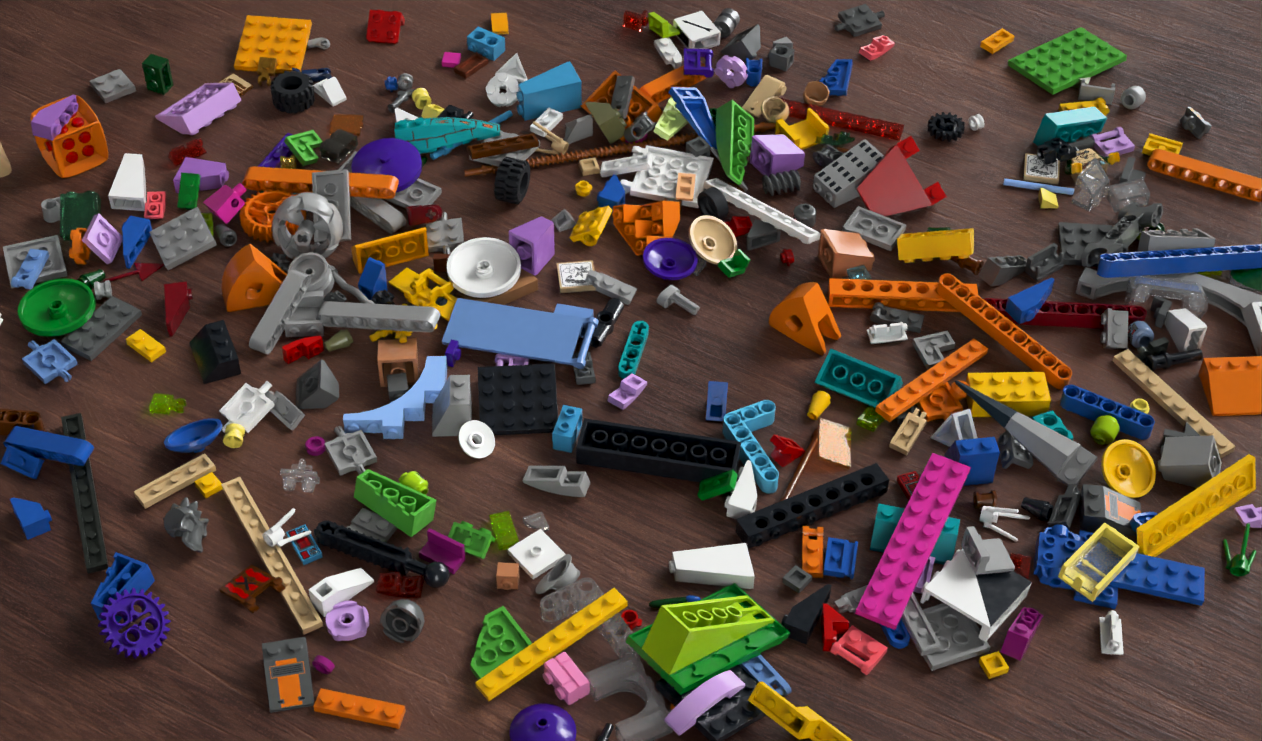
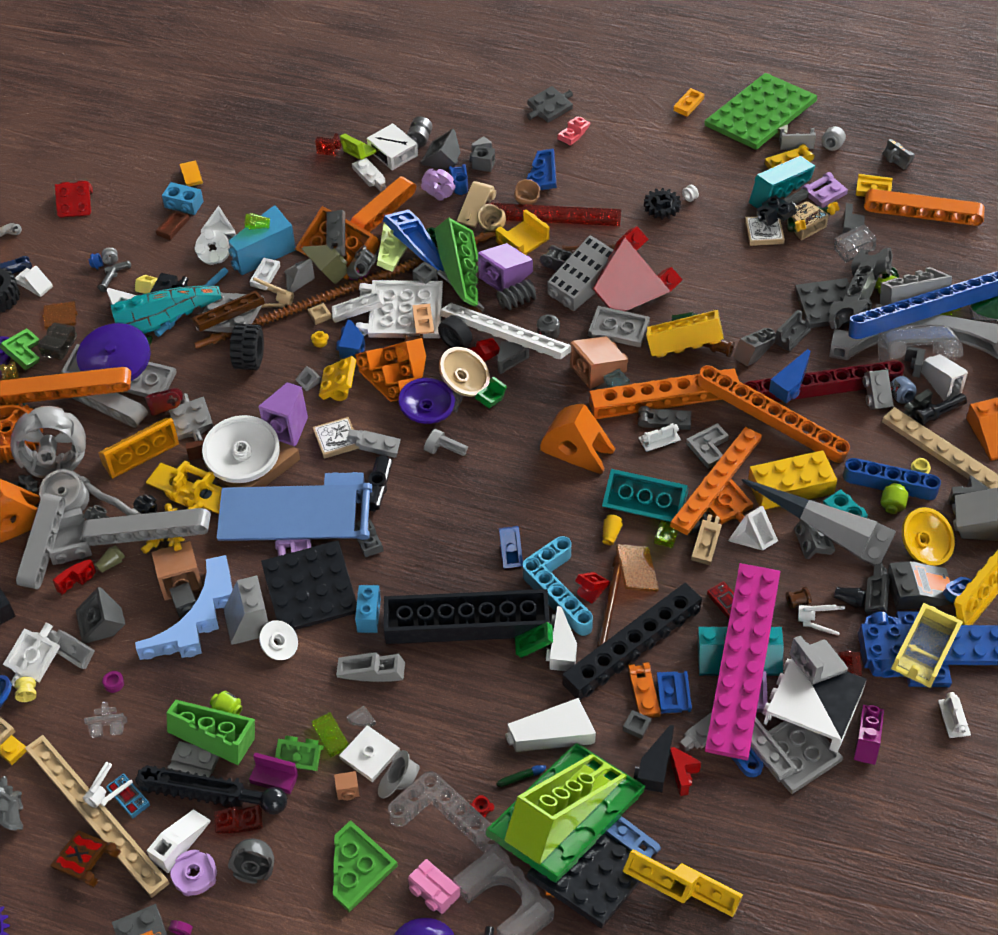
camera: 10 degrees left, 5 degrees up
(335, 187) = (66, 393): light grey plate -> none
(350, 451) = (151, 681): light grey plate -> none
(372, 278) = (129, 484): blue slope -> none
(421, 98) = (130, 271): light yellow wheel -> none
(451, 59) = (150, 222): dark pink tile -> none
(452, 353) = (231, 548): dark purple plate -> none
(548, 71) = (256, 221): none -> clear neon green cone
(551, 644) = (410, 854): yellow plate -> none
(627, 392) = (418, 554): lavender slope -> none
(636, 350) = (413, 507): teal beam -> none
(692, 62) = (397, 181): dark purple plate -> none
(702, 699) = (578, 883): lavender slope -> none
(787, 256) = (541, 374): red plate -> none
(838, 139) = (559, 238): clear green slope -> none
(861, 645) = (719, 783): coral plate -> none
(956, 392) = (742, 488): orange plate -> none
(979, 454) = (780, 555): blue slope -> none
(993, 665) = (850, 775): yellow plate -> none
(1036, 186) = (766, 250): light blue bar -> none
(1047, 199) = (778, 262): light yellow slope -> none
(1091, 186) = (818, 241): clear slope -> none

